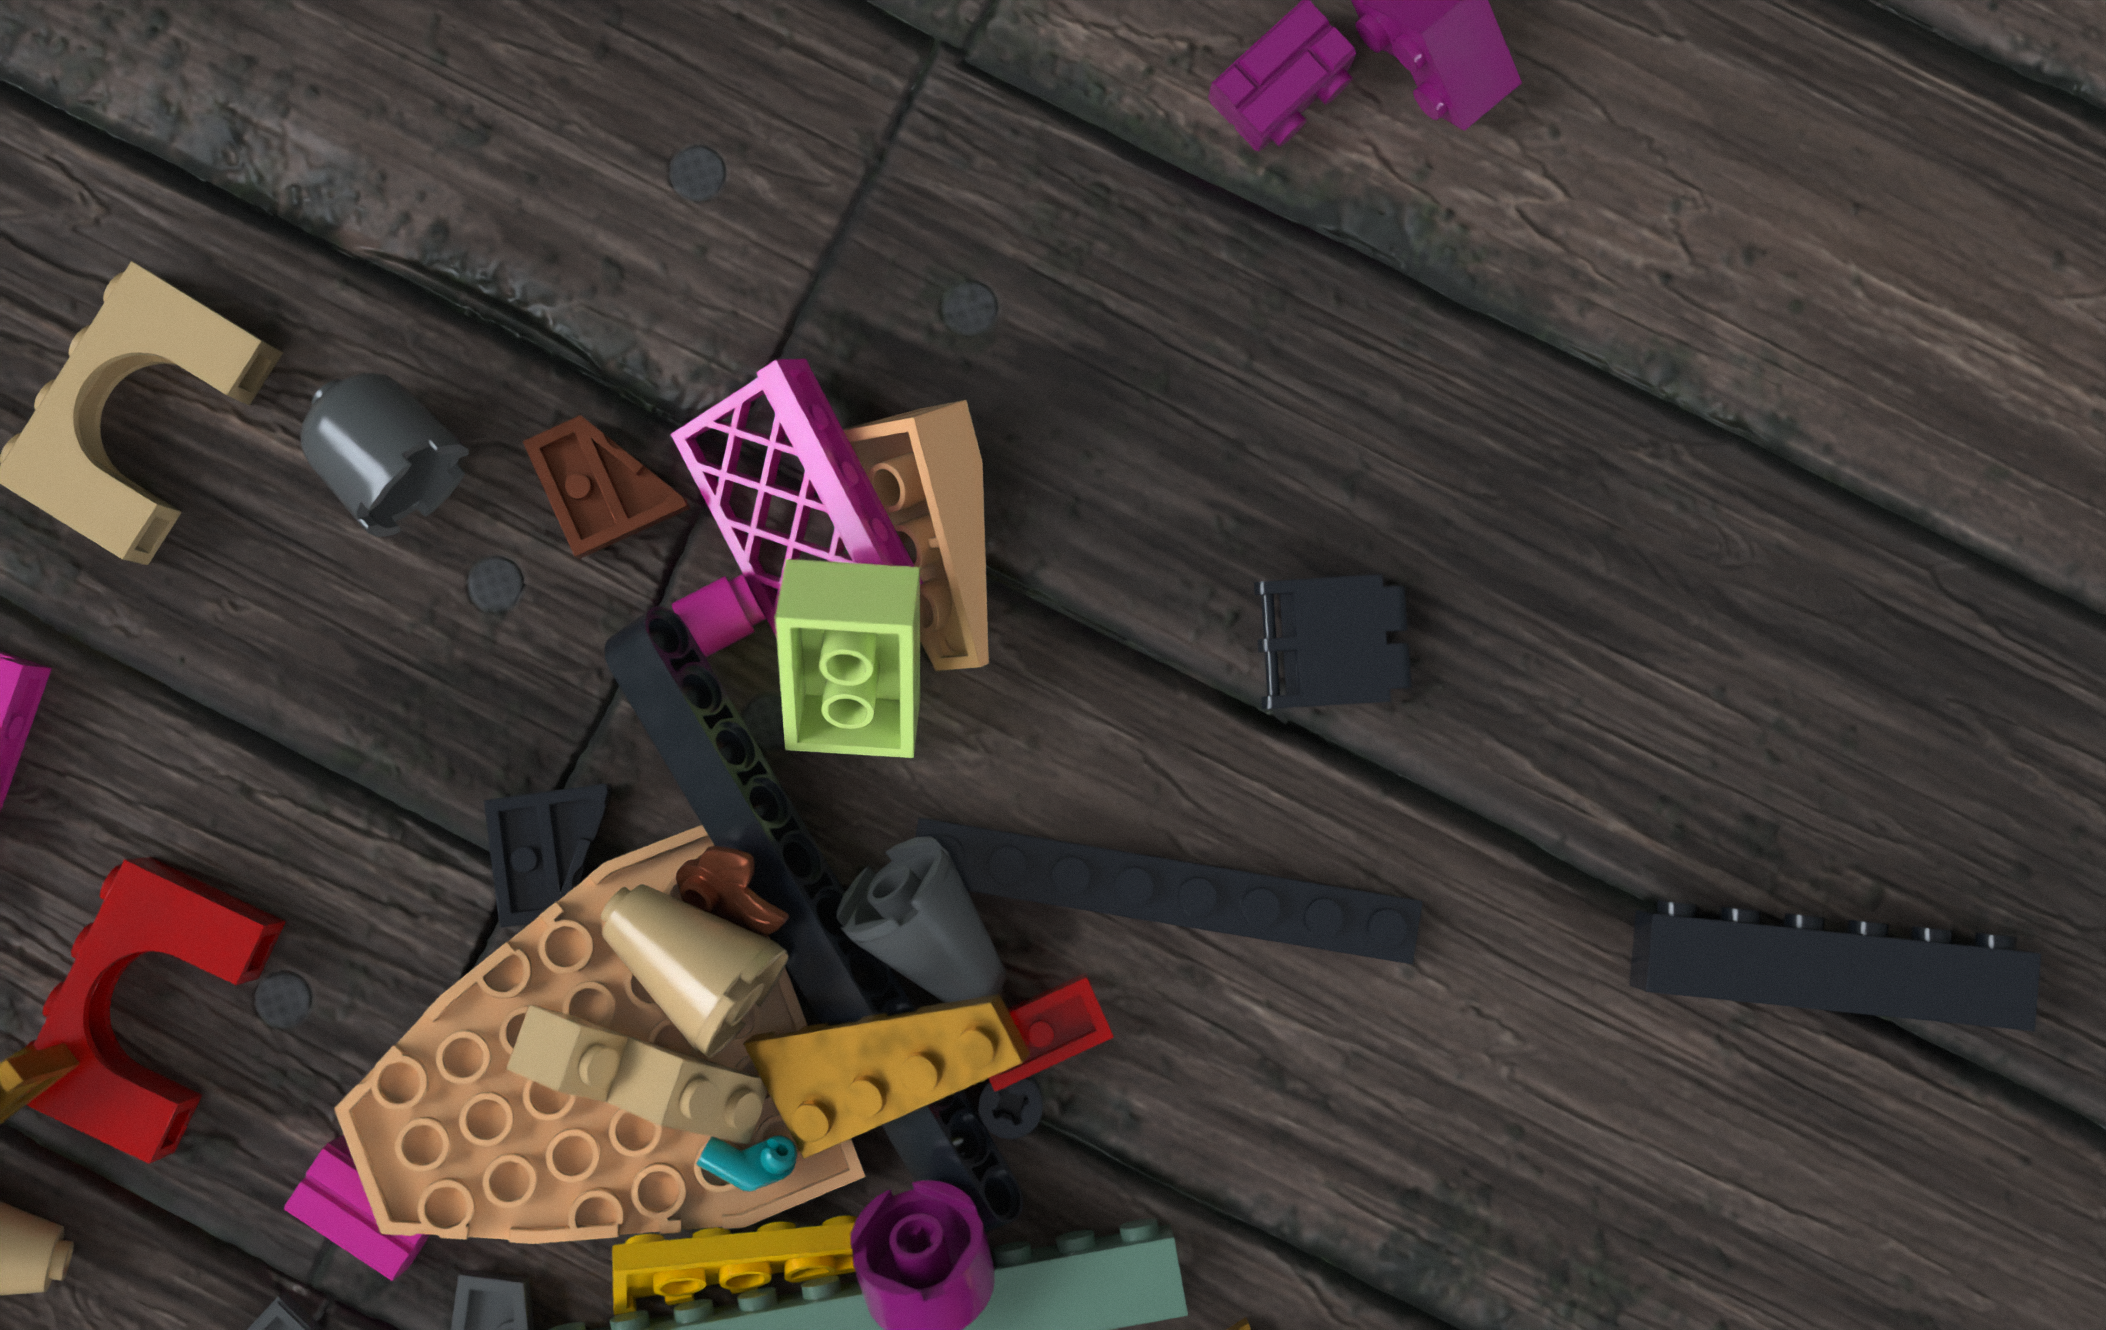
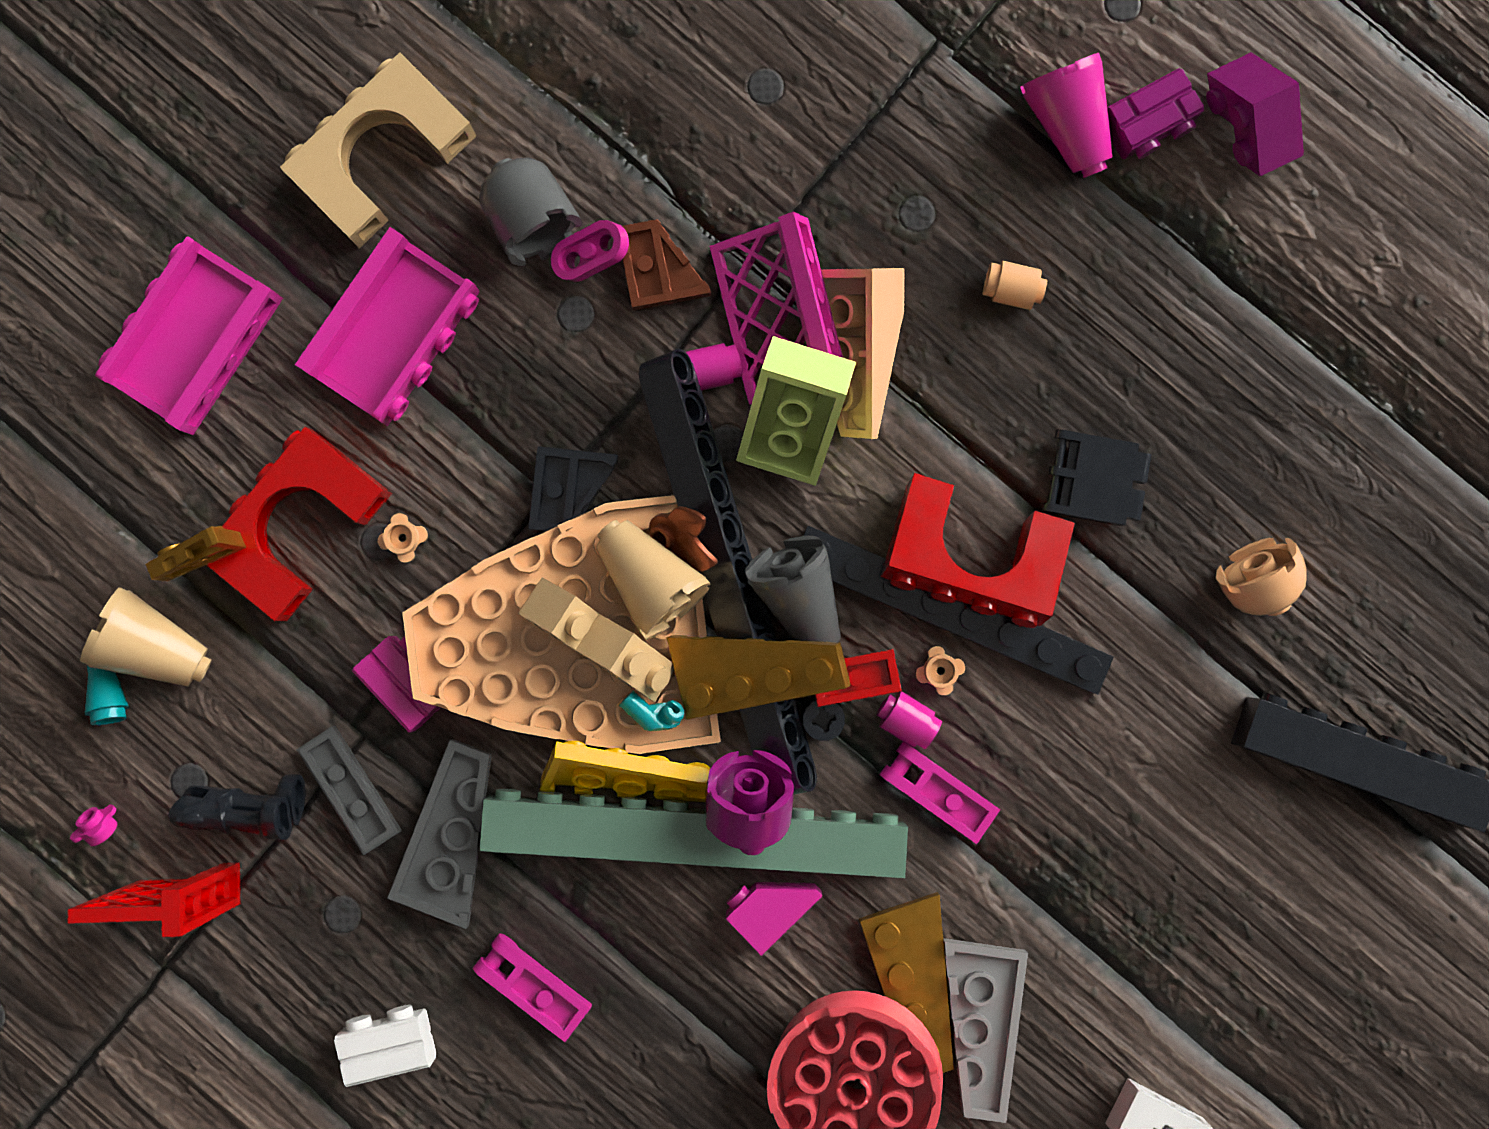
camera: 10 degrees right, 0 degrees up
(218, 676) = (389, 328): none -> dark pink panel
(297, 988) = (390, 538): none -> light nougat plate
(493, 482) = (592, 248): none -> dark pink plate
(1096, 833) = (922, 562): none -> red arch
(1138, 1073) = (908, 720): none -> dark pink brick
(1139, 381) = (1014, 285): none -> light nougat brick
(1165, 104) = (1074, 113): none -> dark pink cone
(1177, 1002) = (952, 669): none -> light nougat plate
(1214, 1170) = (941, 793): none -> dark pink plate
(1615, 729) = (1264, 577): none -> light nougat cylinder

